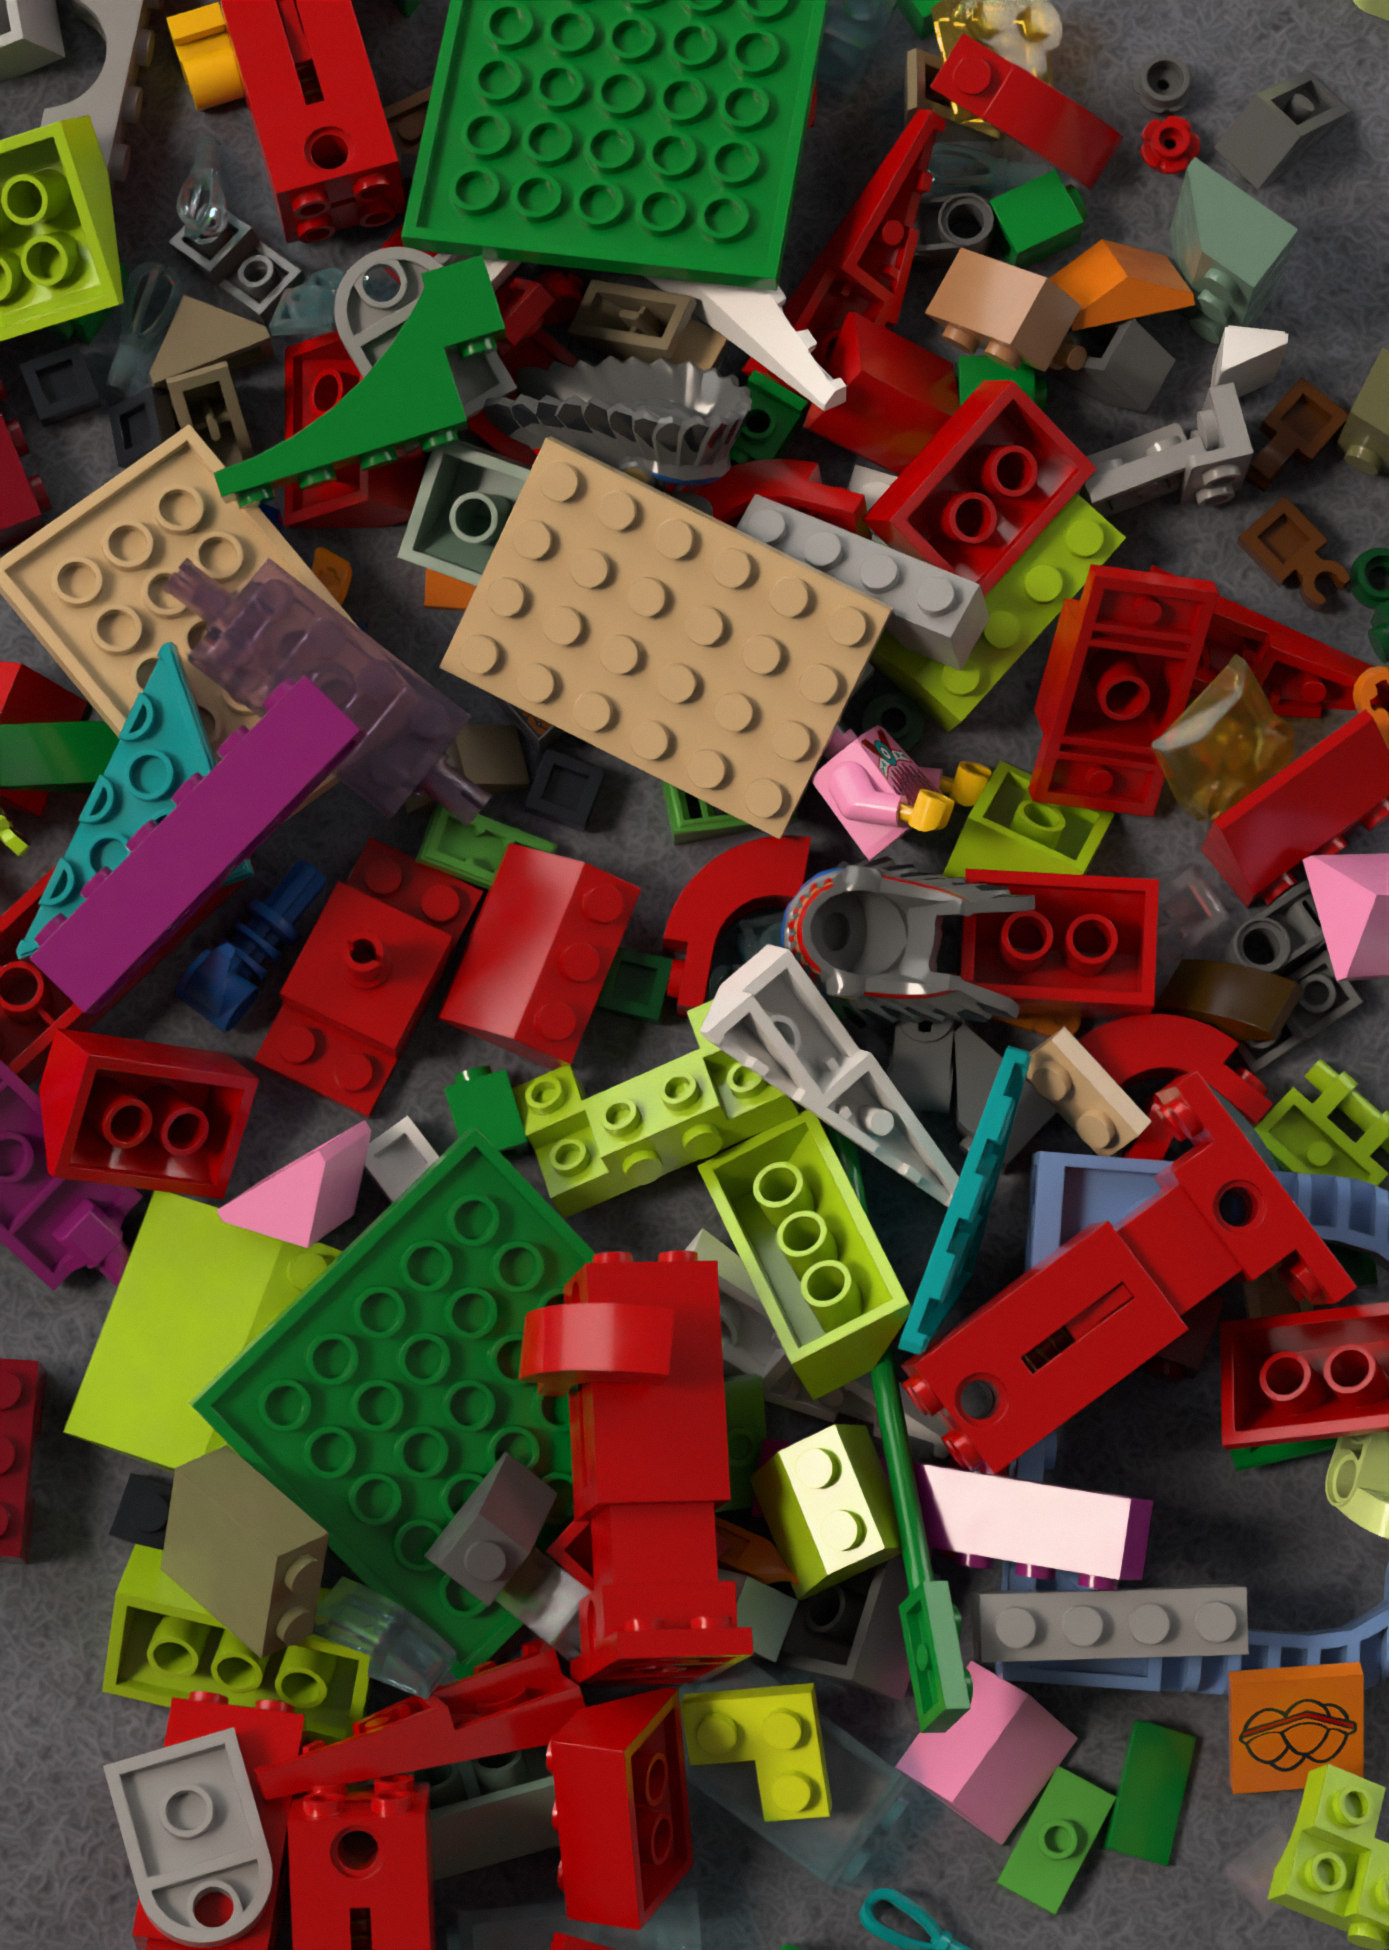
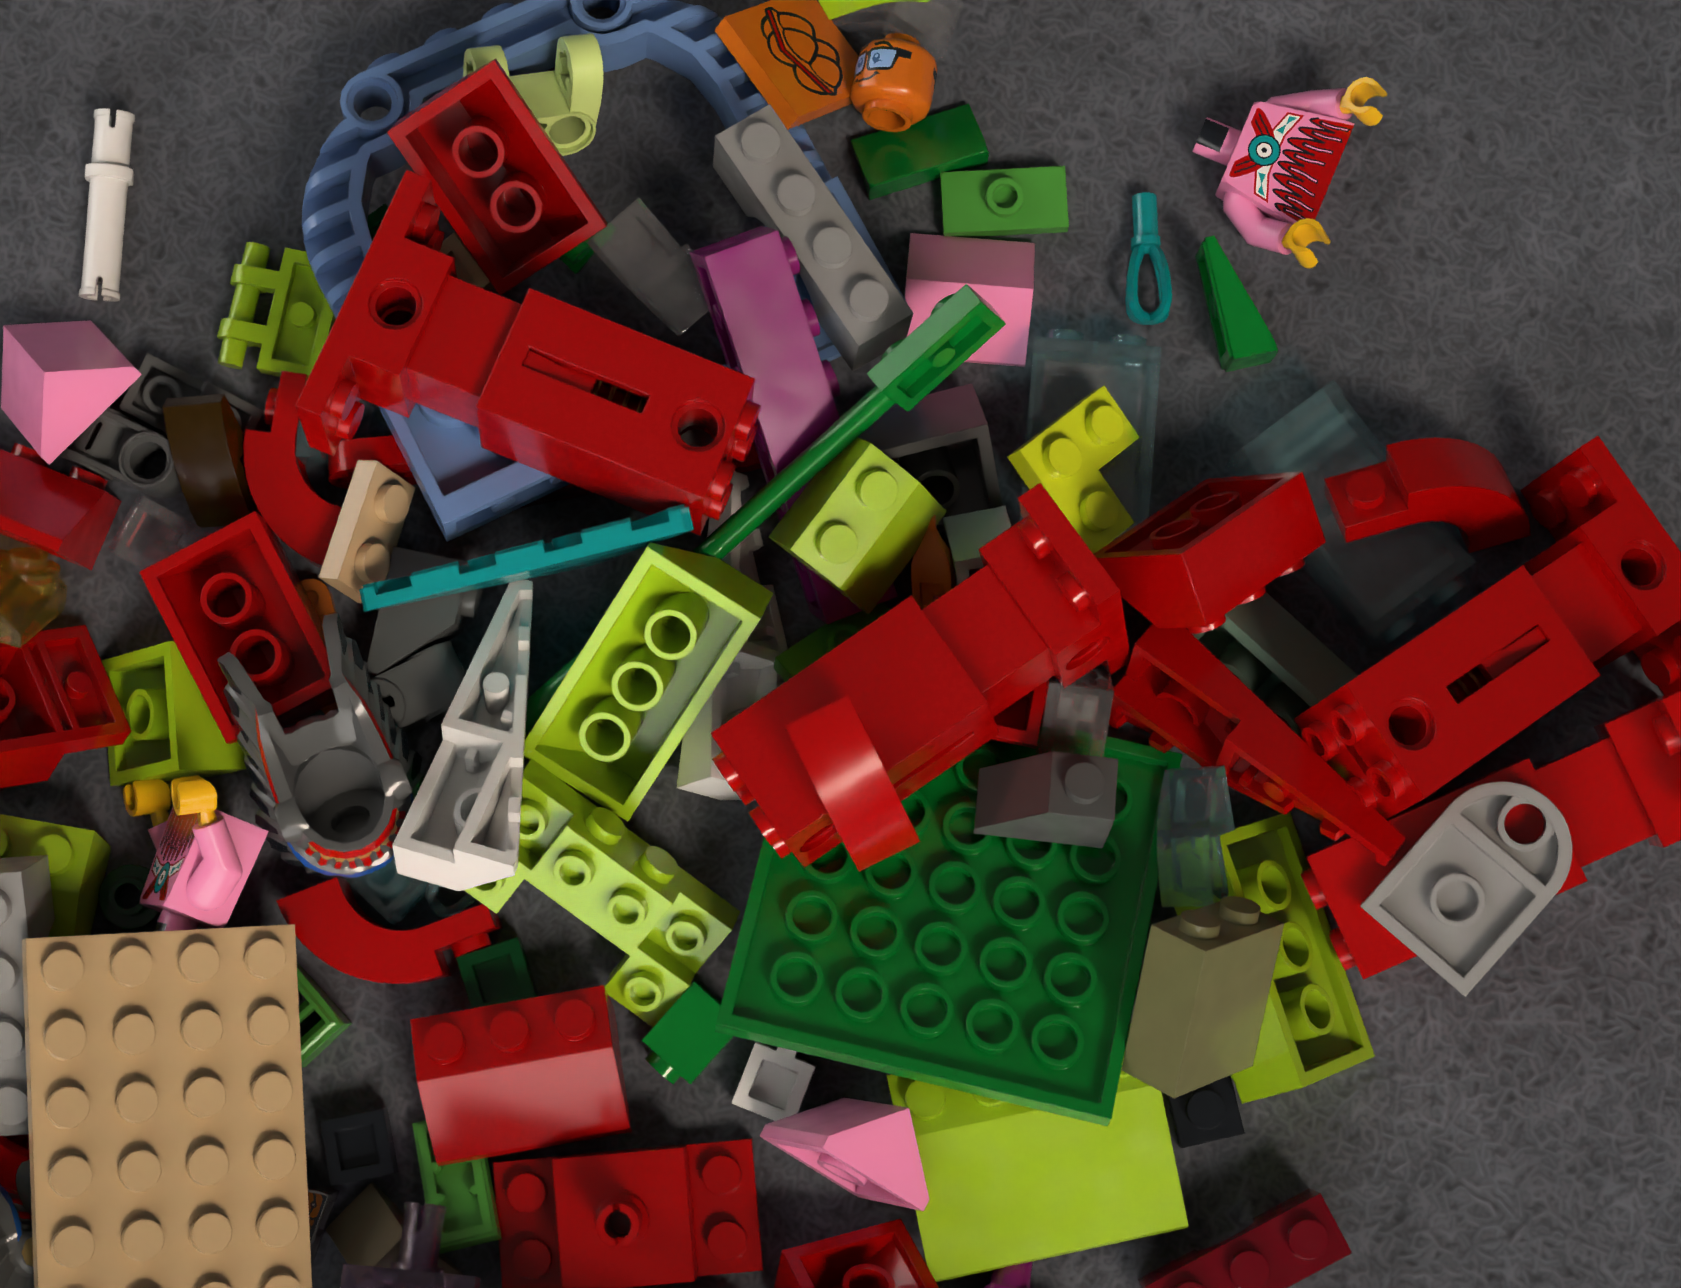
camera: 115 degrees left, 5 degrees up
(1167, 1469) = (652, 266): none -> clear slope
(1222, 1802) = (894, 82): none -> orange head

